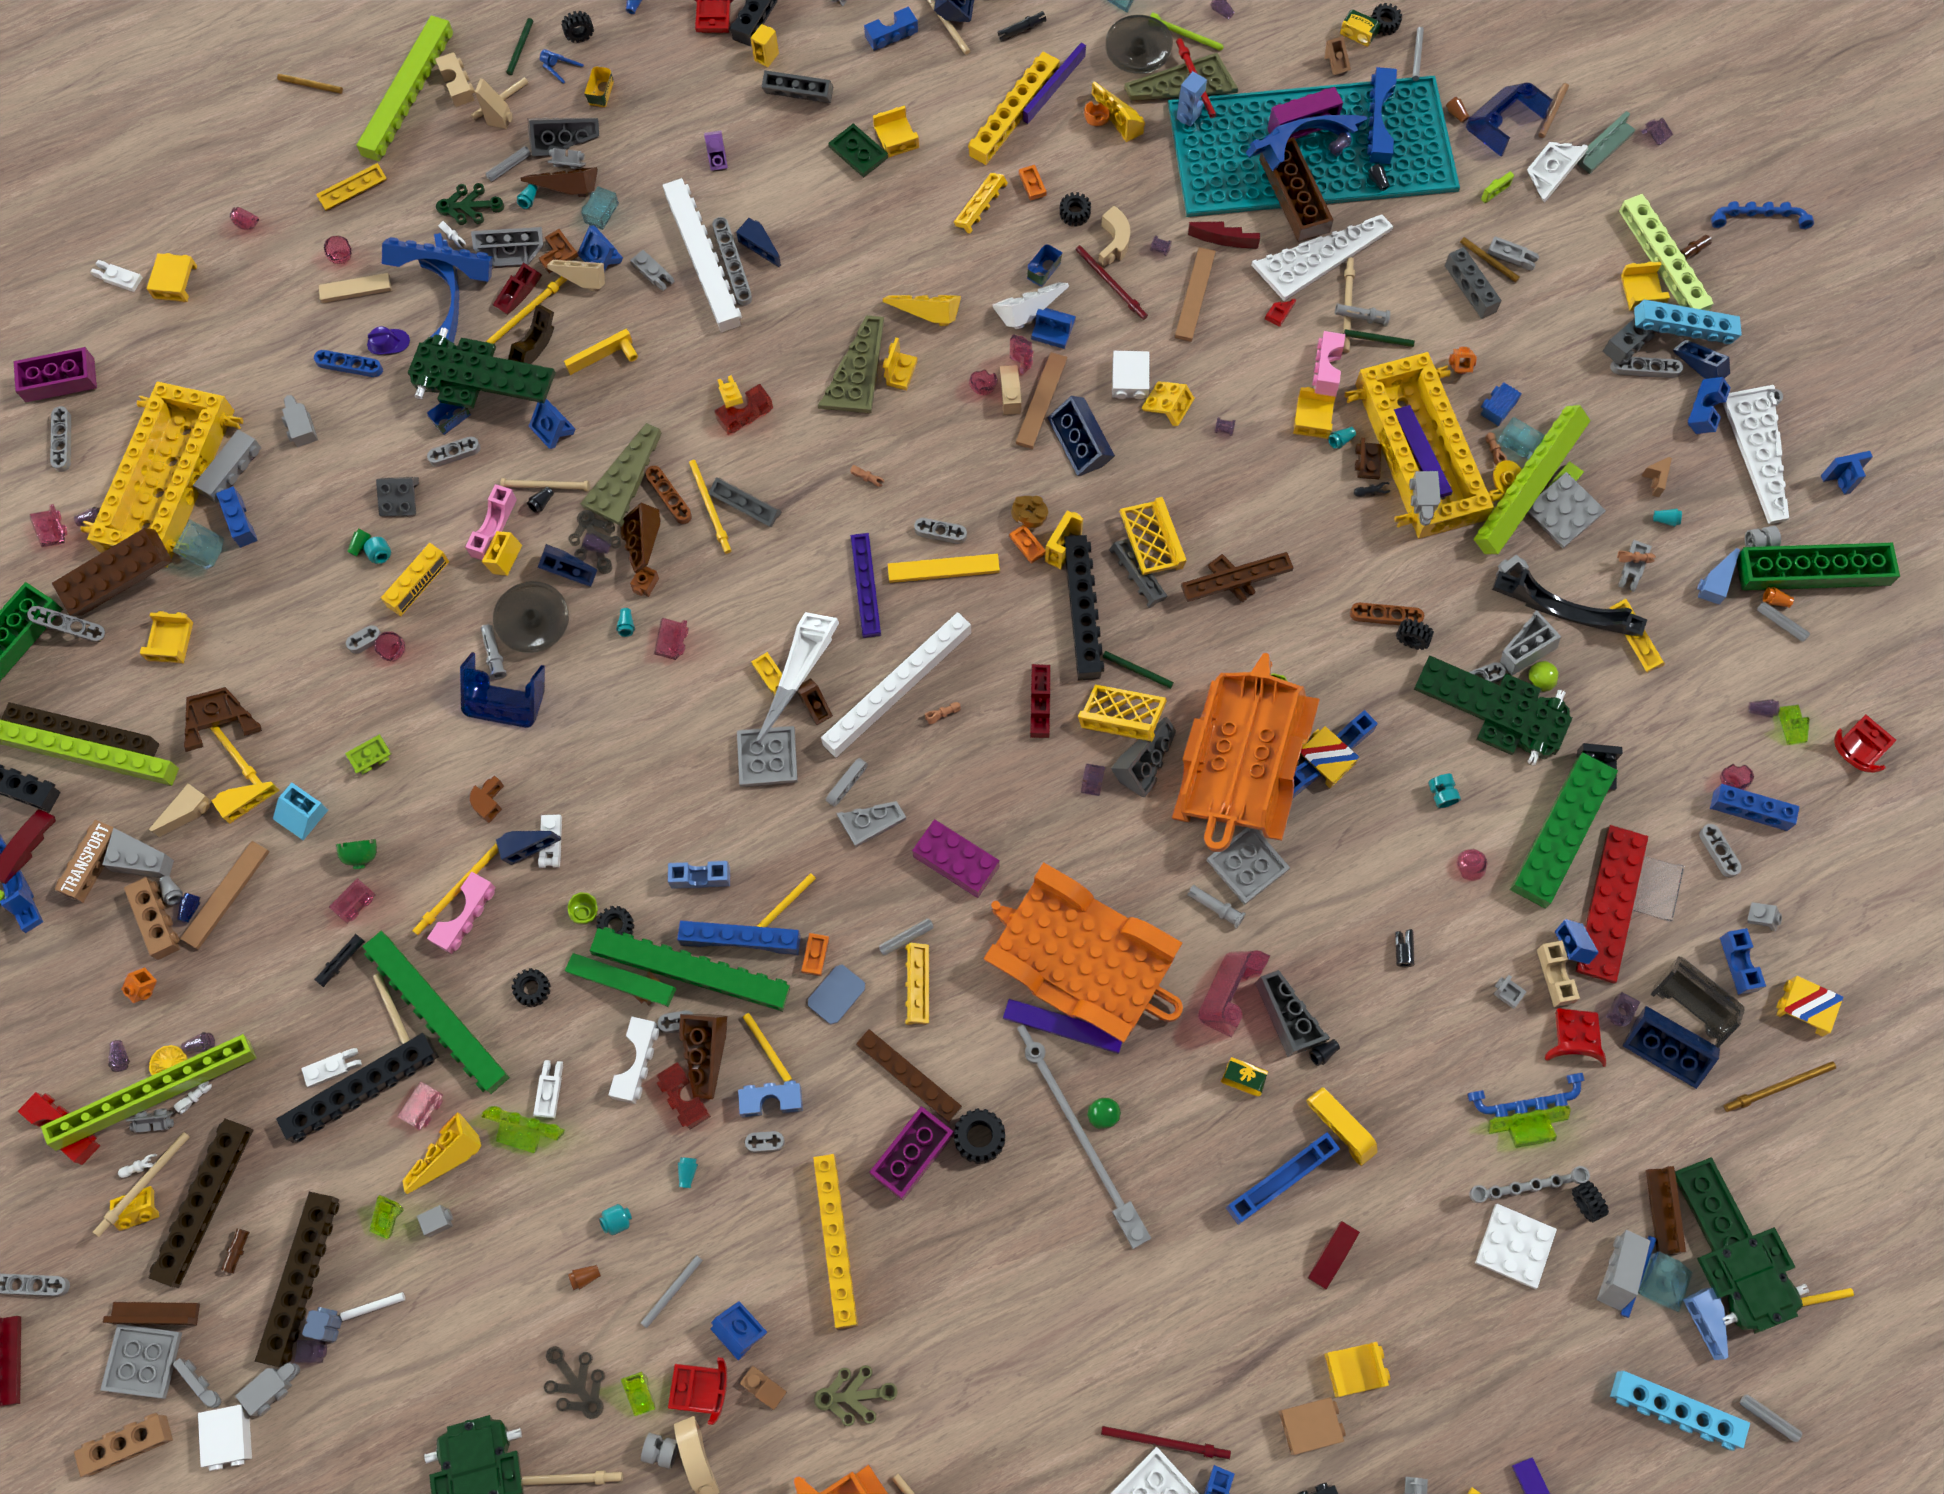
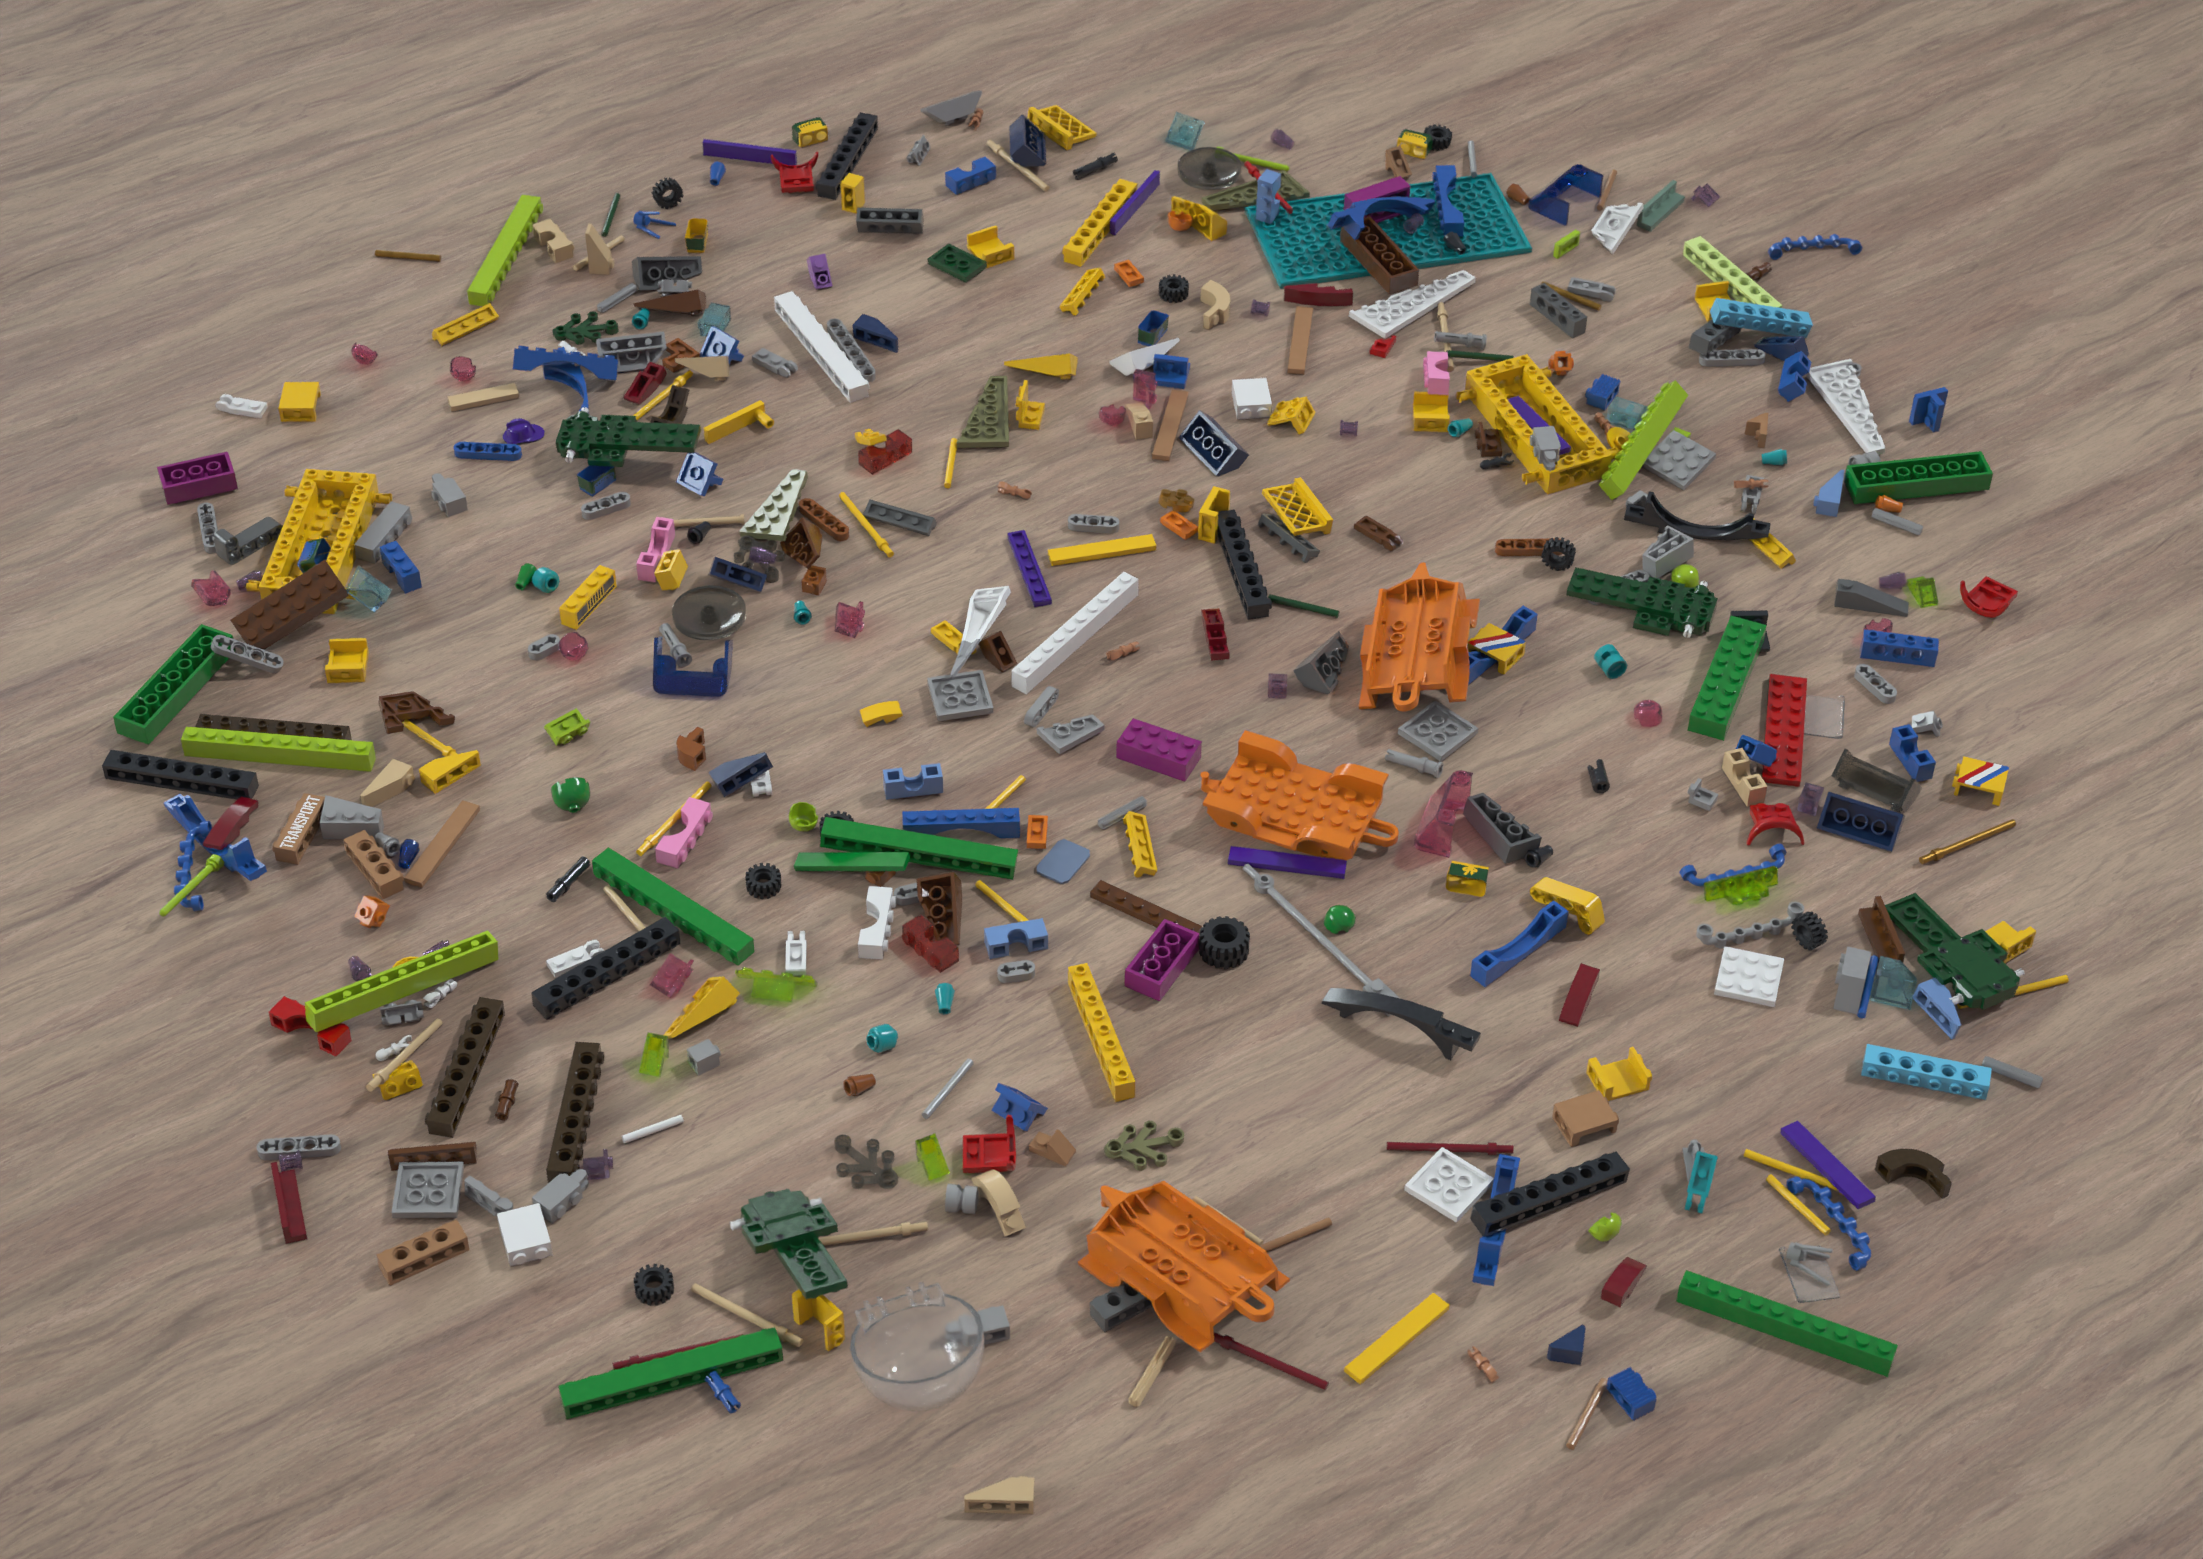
camera: 10 degrees left, 25 degrees down
(14, 1305) = (295, 1158): none -> clear purple bush
(91, 465) = (238, 547): none -> dark grey beam
(143, 498) = (309, 555): none -> blue piece
(298, 811) = (507, 771): medium azure slope -> none
(322, 1325) = (609, 1136): sand blue brick -> none
(352, 901) = (573, 834): clear pink bracket -> none
(396, 496) = (557, 539): dark grey bracket -> none
(684, 770) = (886, 710): none -> yellow slope
(809, 428) = (950, 464): none -> yellow bar
(1117, 724) = (1301, 637): yellow fence -> none
(1133, 304) = (1242, 351): dark red bar -> none
(1157, 1278) = (1443, 1032): none -> black slope
(1237, 576) = (1383, 526): reddish brown plate -> none
(1727, 725) = (1862, 597): none -> dark grey wedge
(1798, 1234) = (2010, 940): none -> yellow bracket

